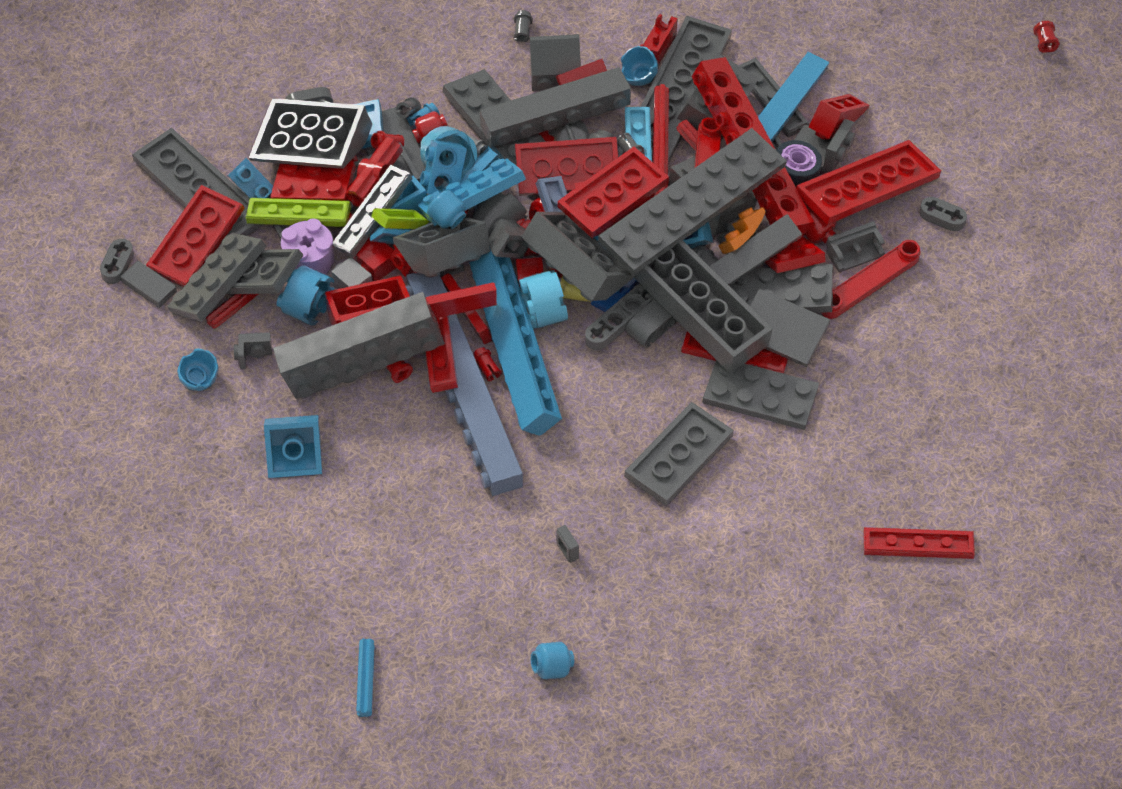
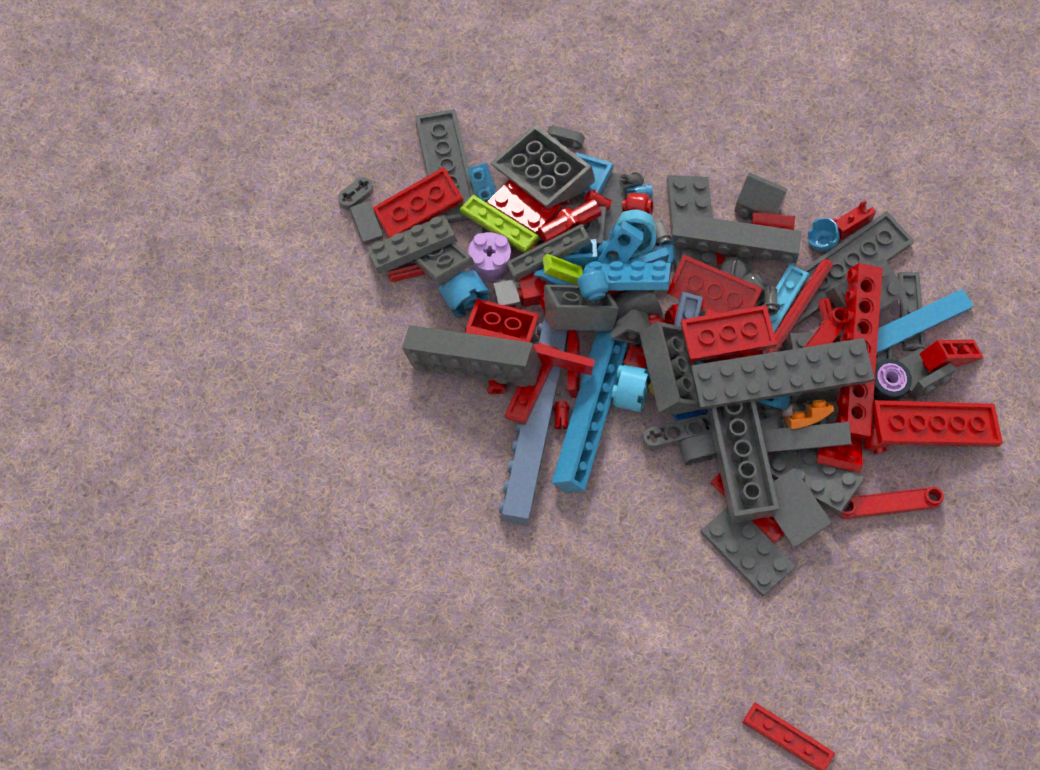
camera: 30 degrees right, 10 degrees up
(198, 370) = (356, 310): dark azure hair -> none
(252, 345) = (407, 311): dark grey bracket -> none
(293, 446) = (385, 404): dark azure slope -> none
(365, 677) = (325, 611): dark azure axle -> none
(523, 21) = (758, 156): dark grey pin -> none
(552, 660) = (460, 675): dark azure head -> none
(567, 544) = (528, 591): dark grey tile -> none
(678, 453) = (655, 564): dark grey plate -> none
(855, 246) = (895, 470): dark grey hinge -> none
(943, 214) = (985, 477): dark grey beam -> none

